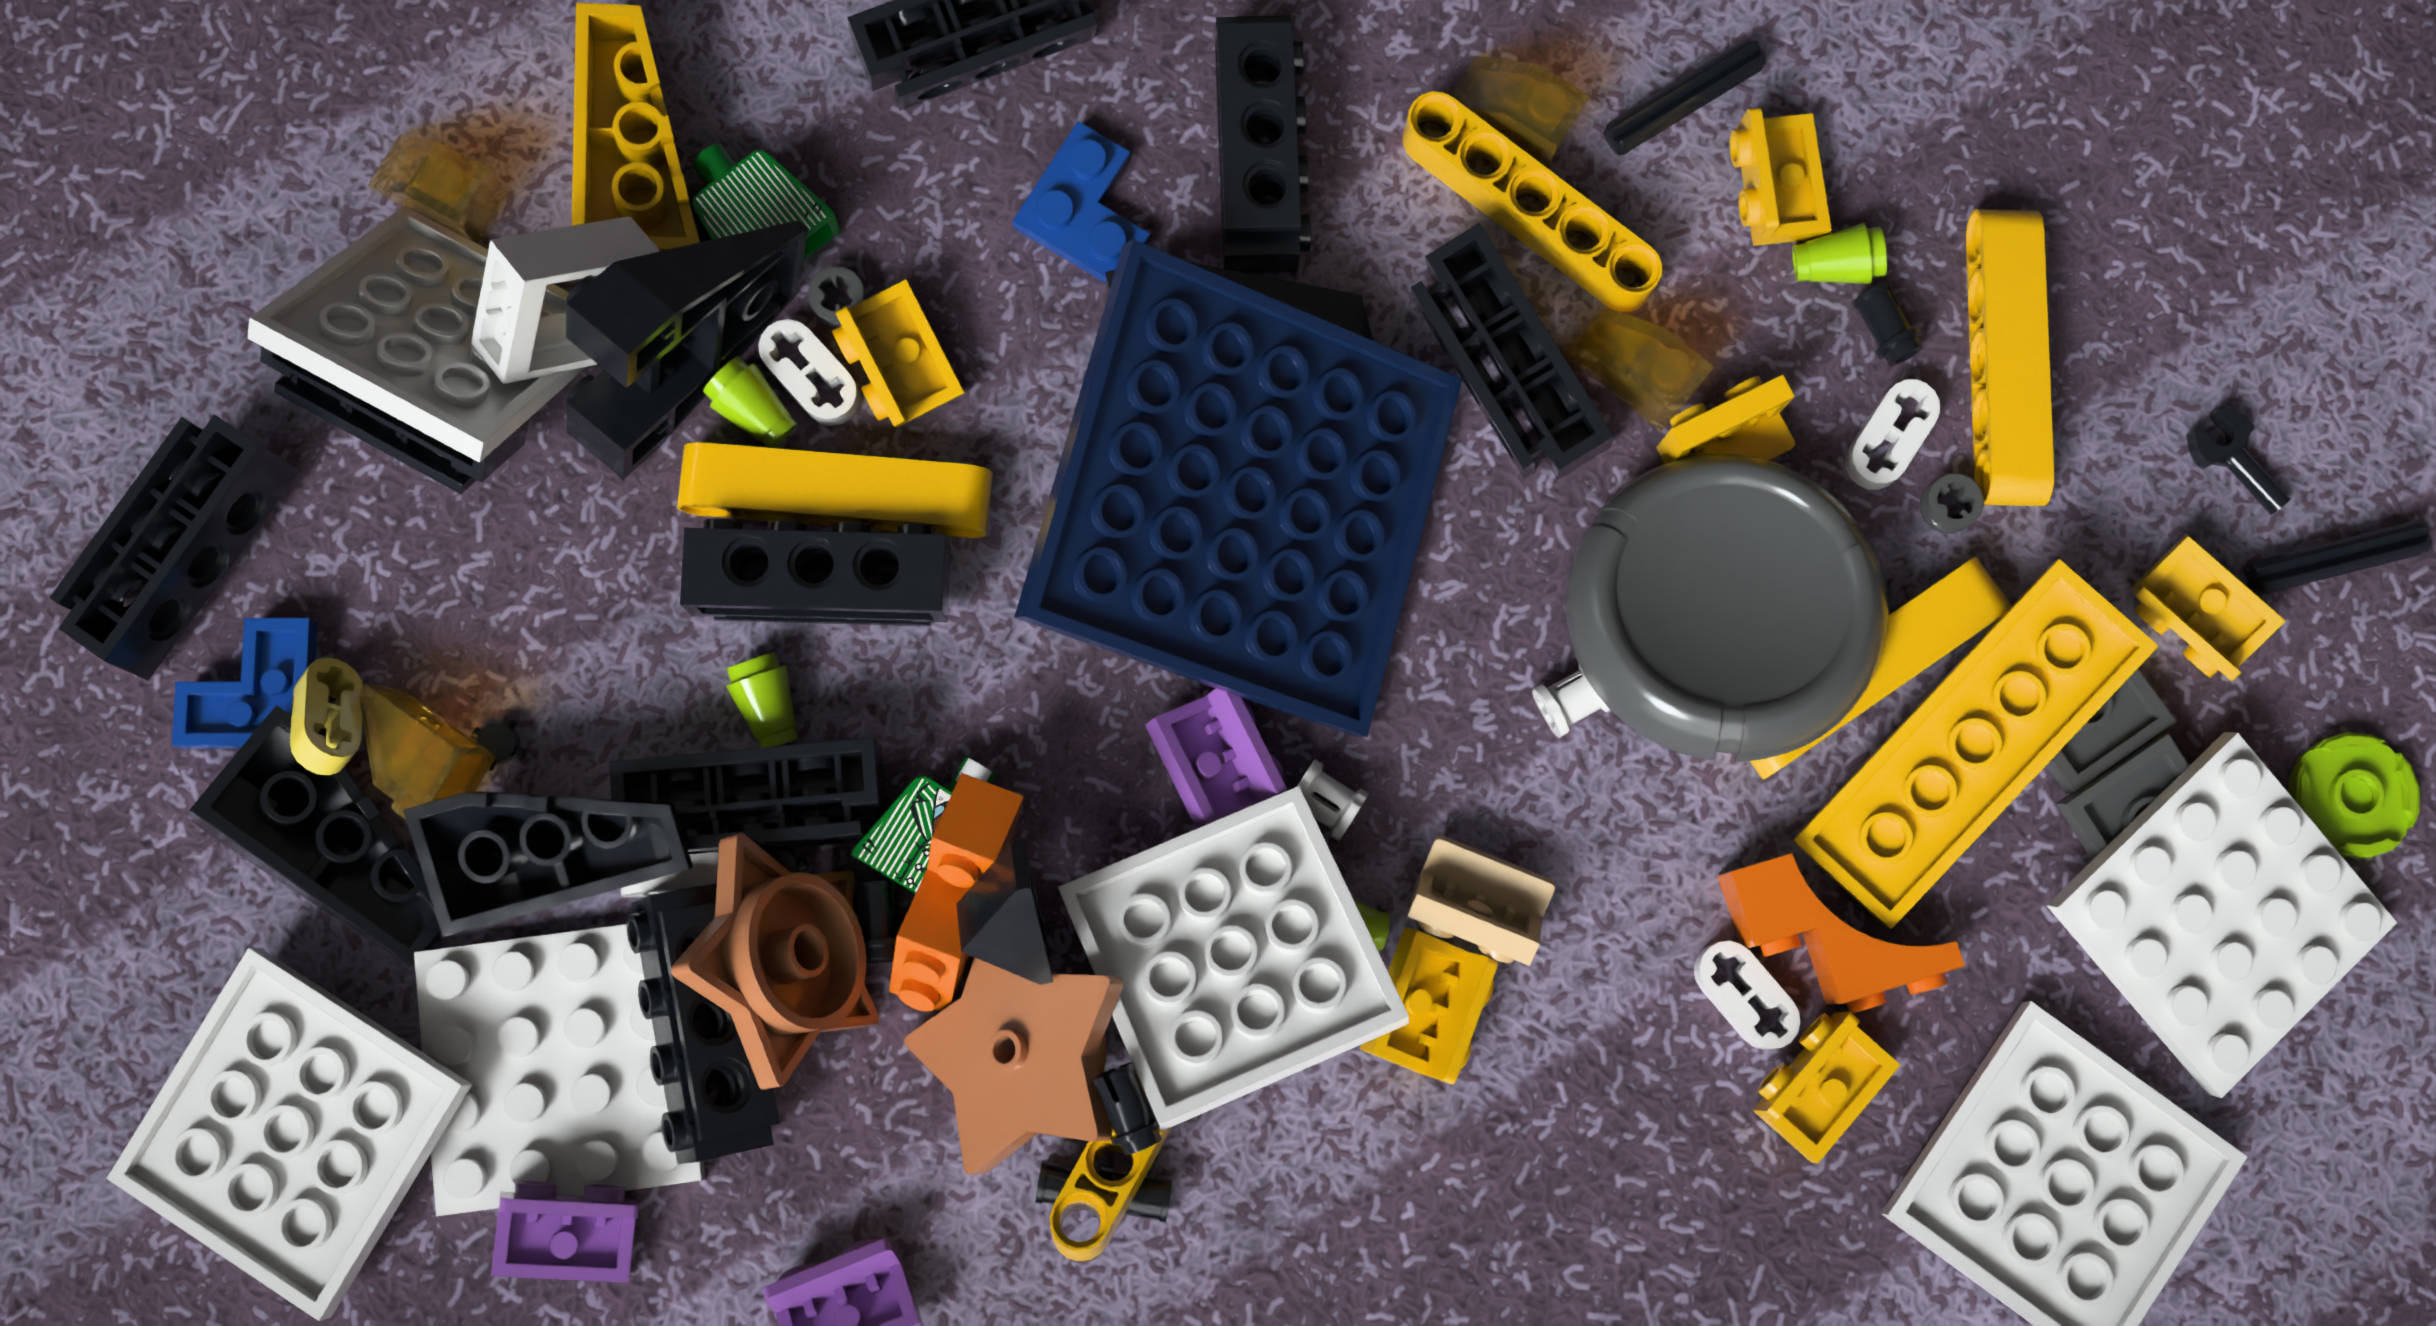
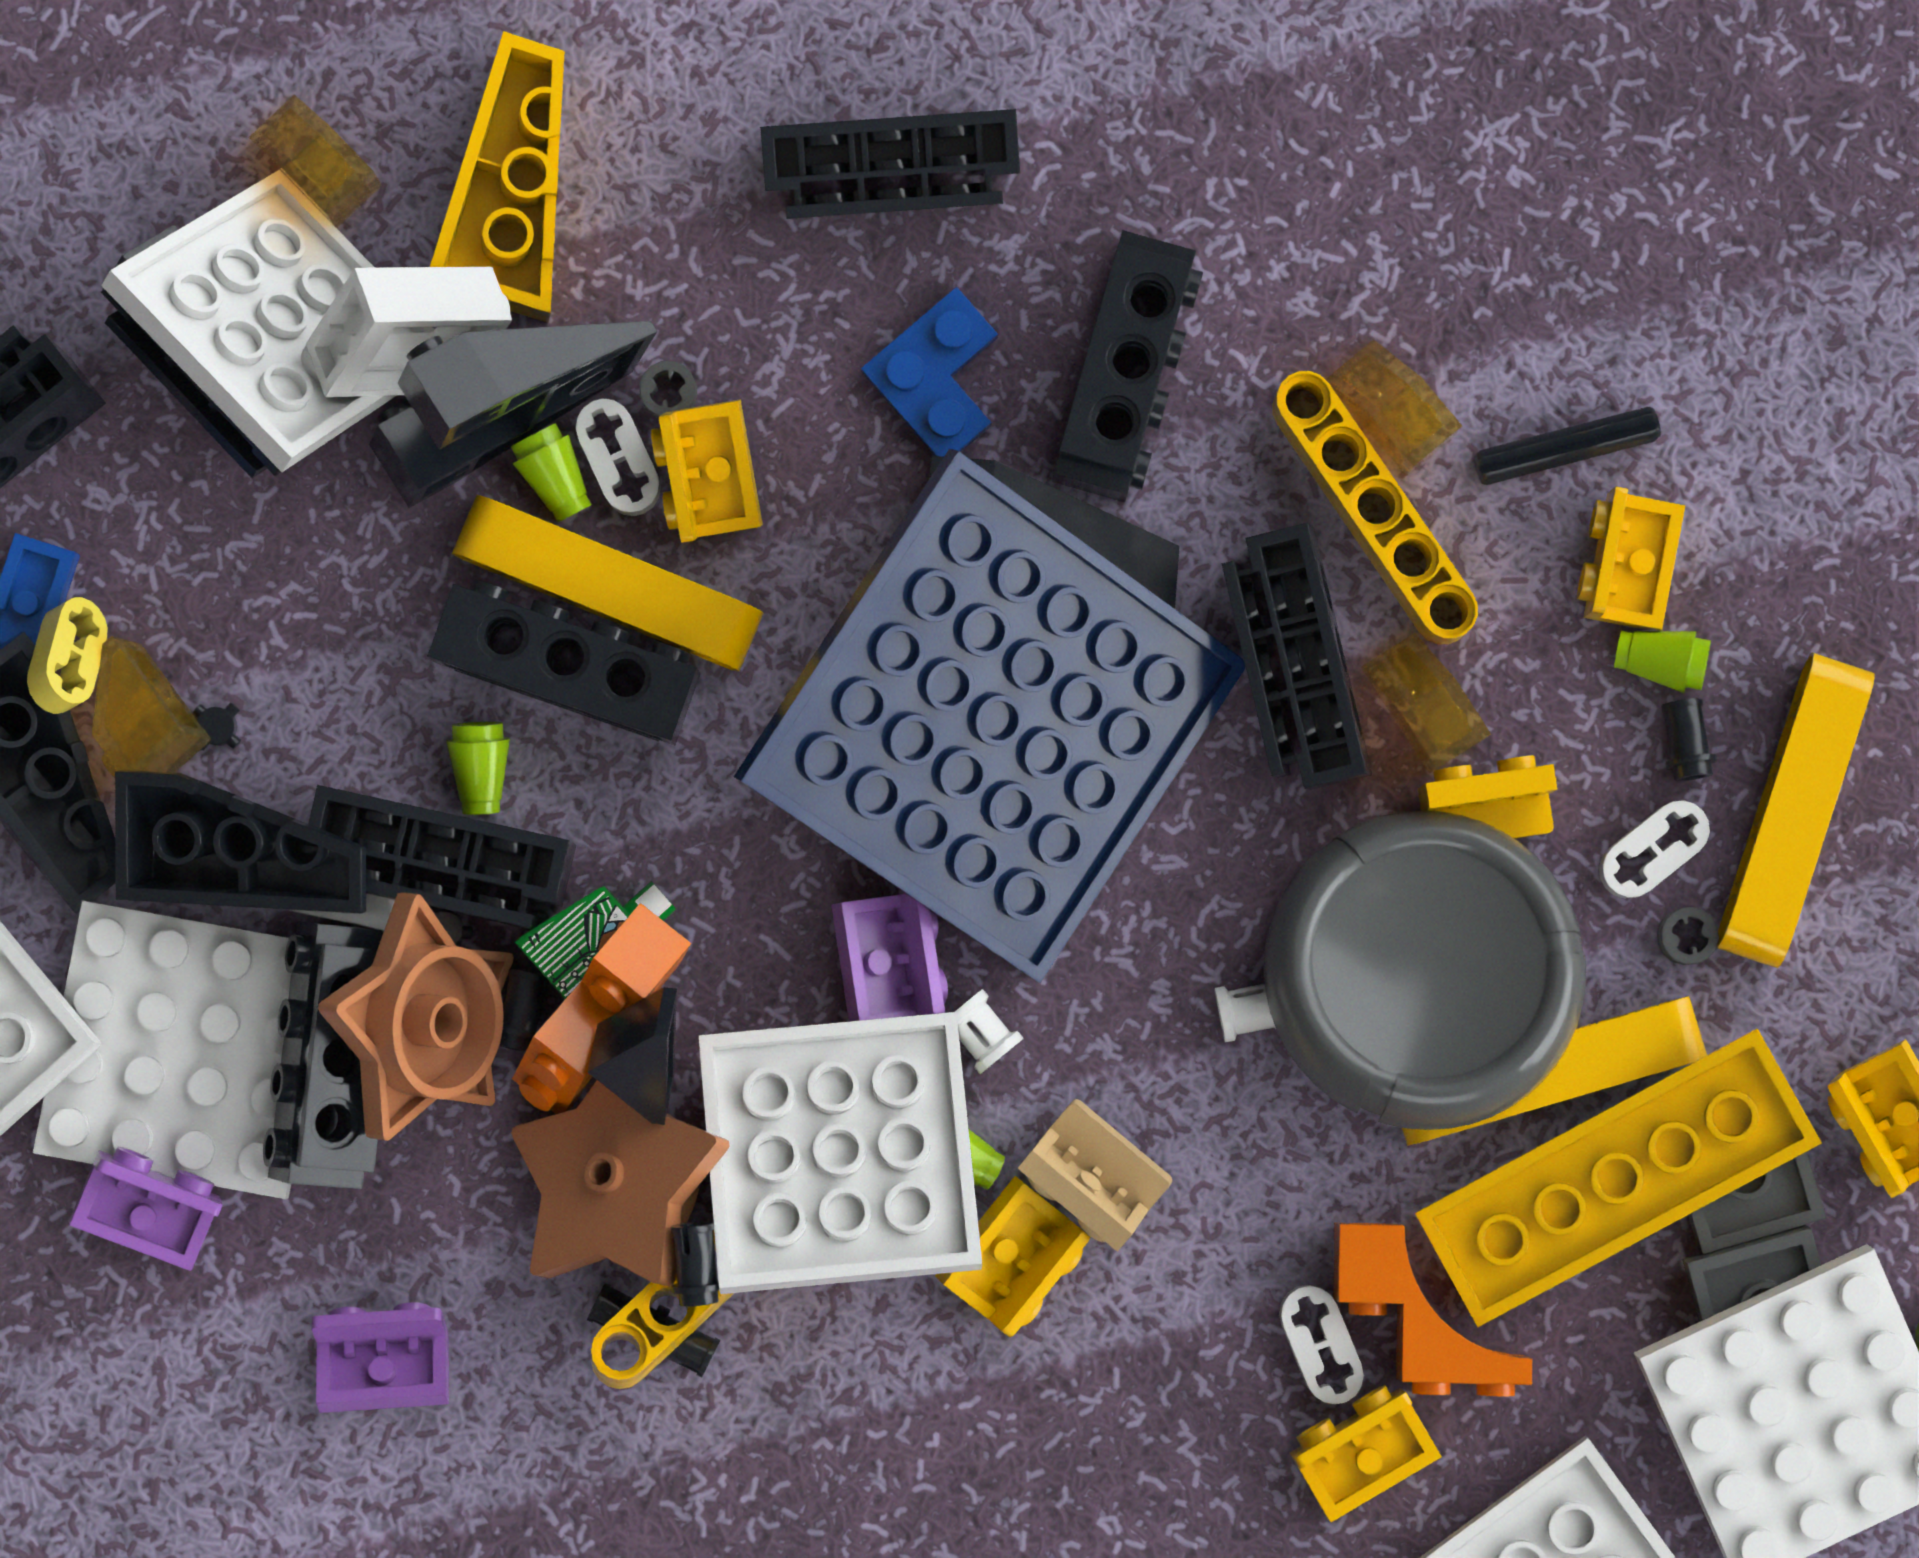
camera: 25 degrees right, 5 degrees up
(757, 196) = (616, 277): green torso -> none

